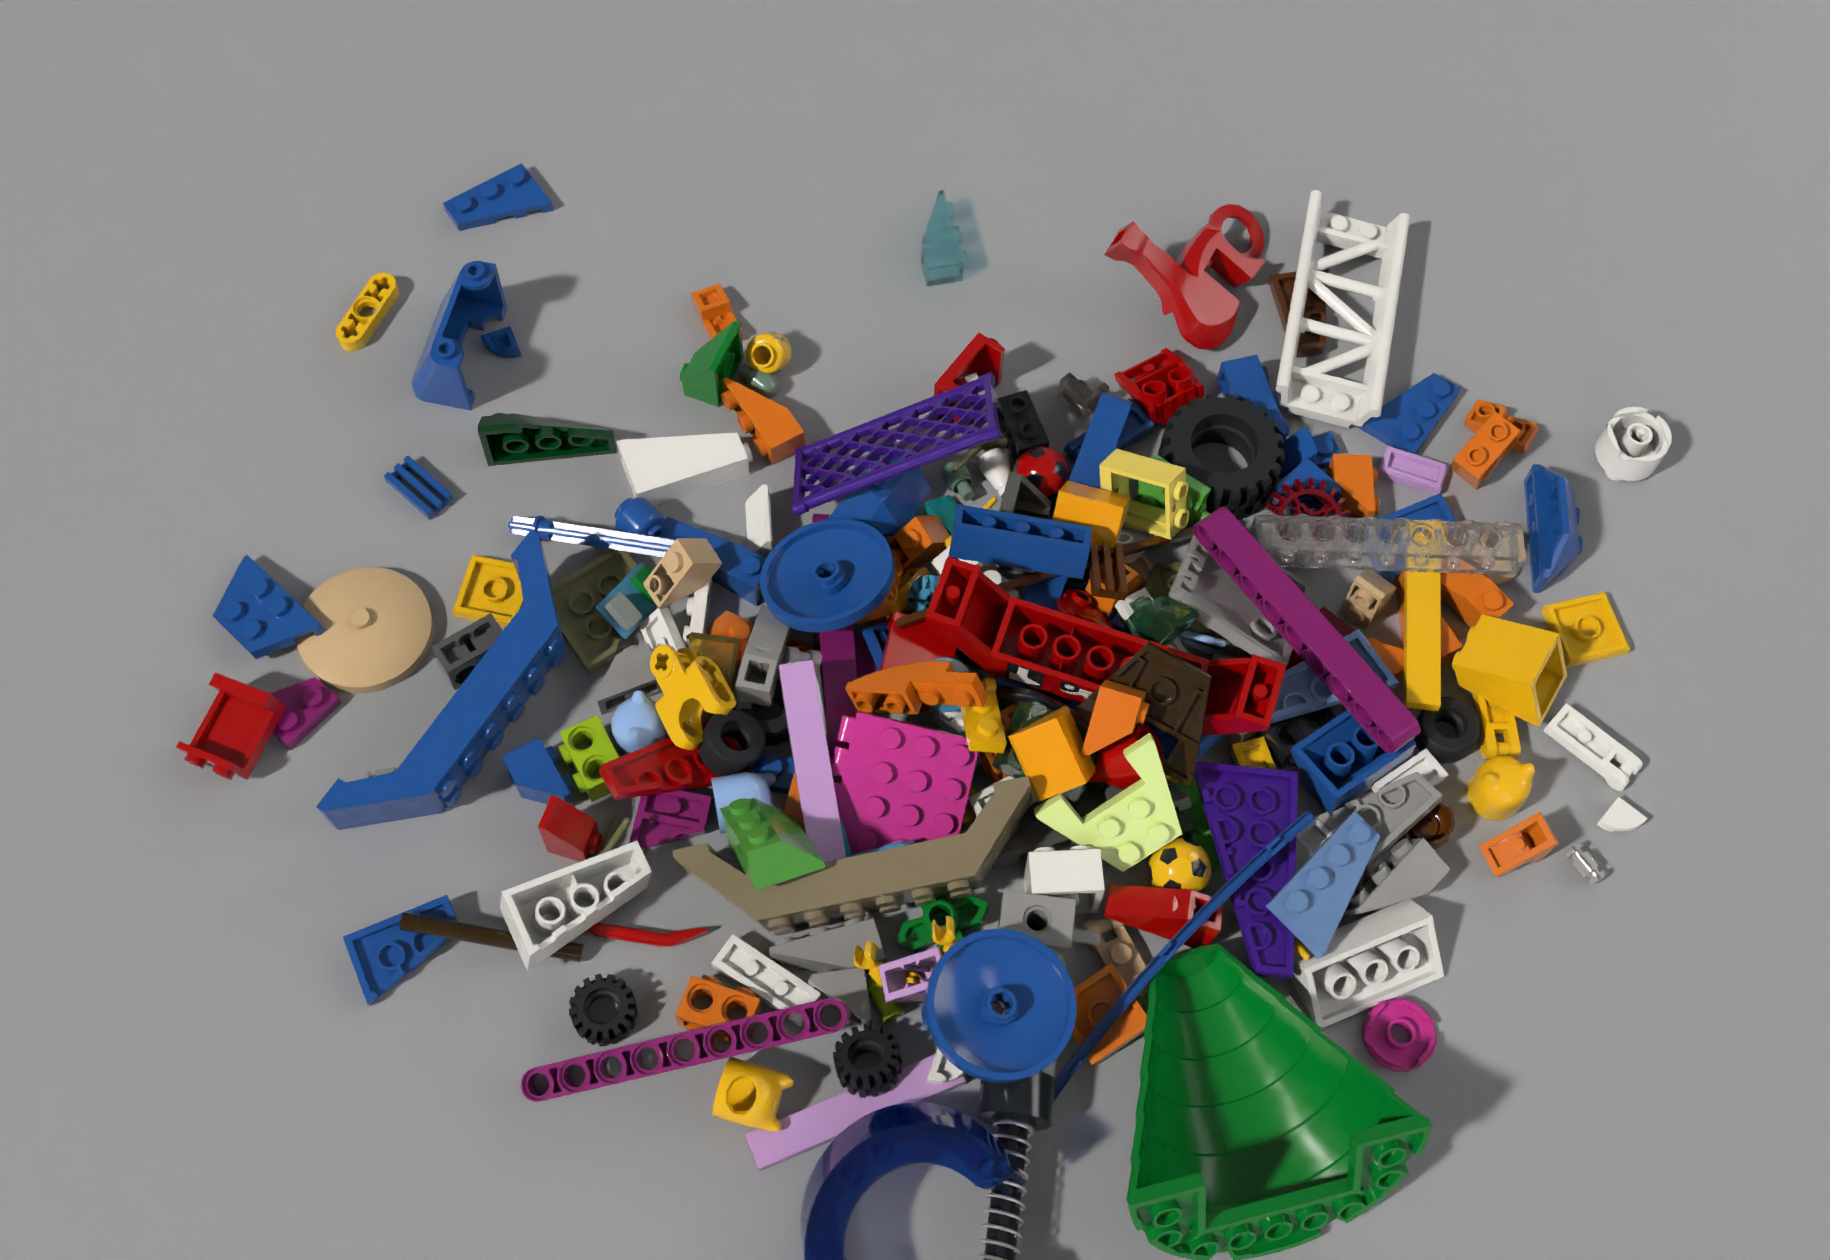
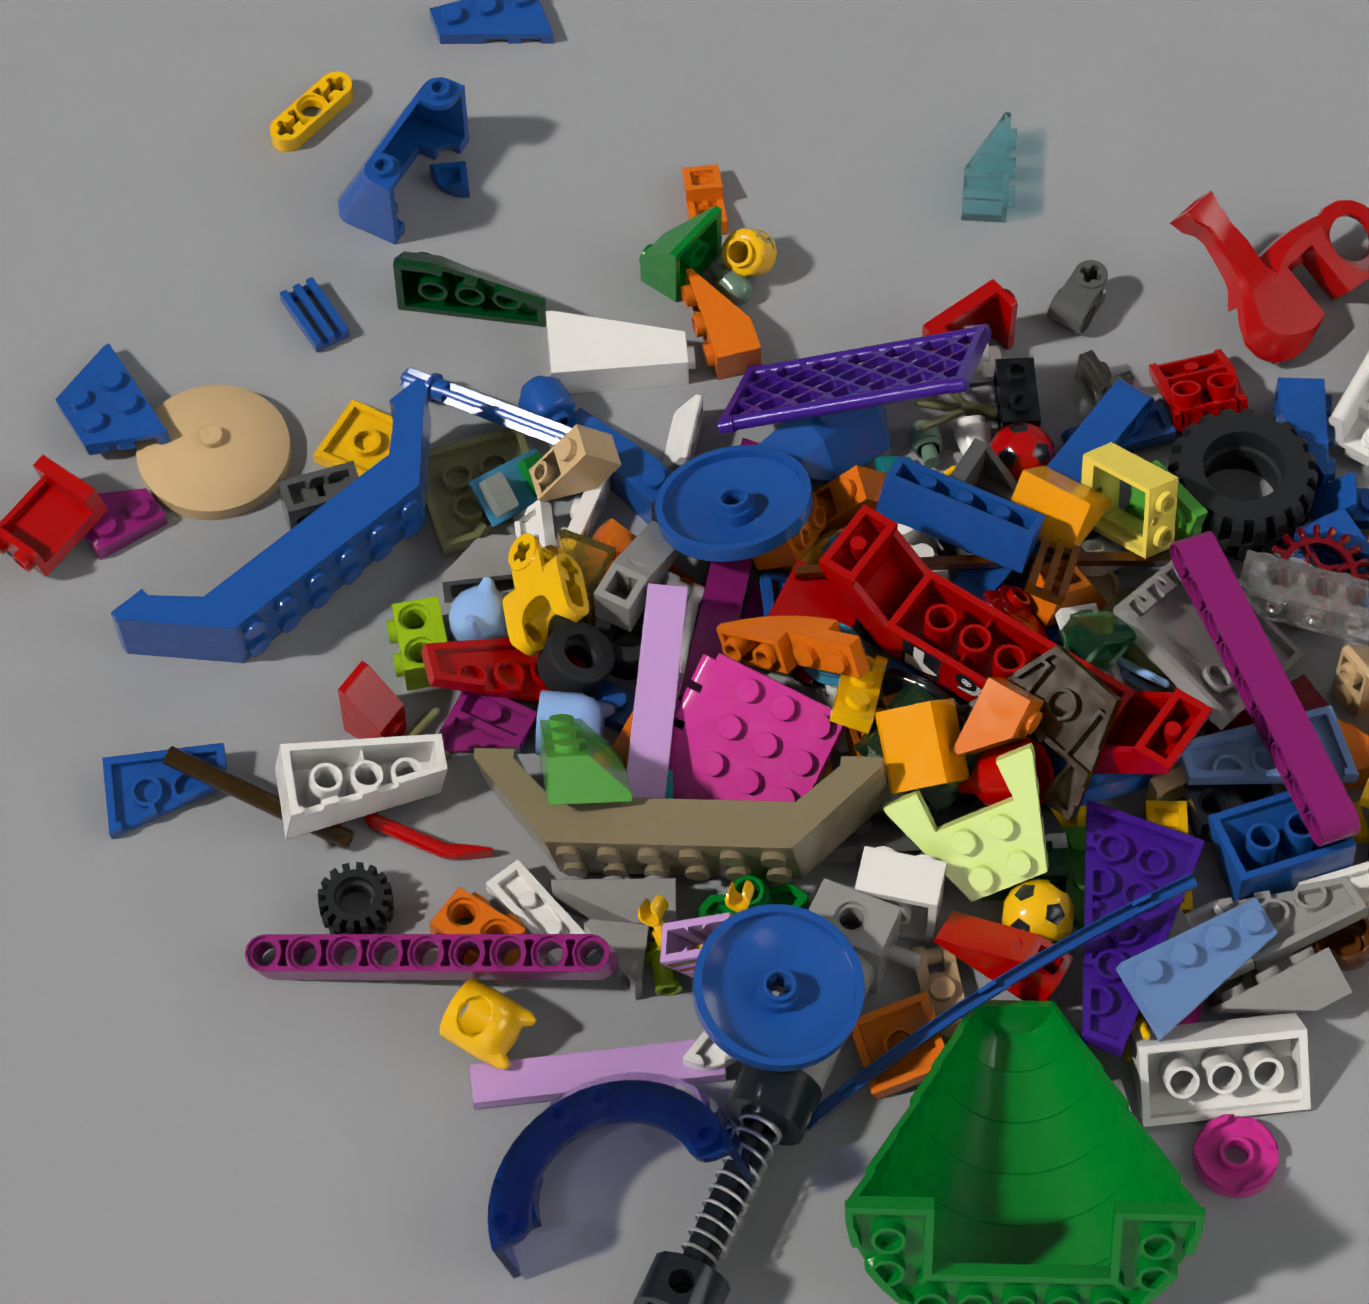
camera: 20 degrees right, 5 degrees down
(535, 773) = (354, 638): blue slope -> none
(861, 1043) = (624, 1040): black tyre -> none
(1044, 329) = (1080, 297): none -> dark grey piece

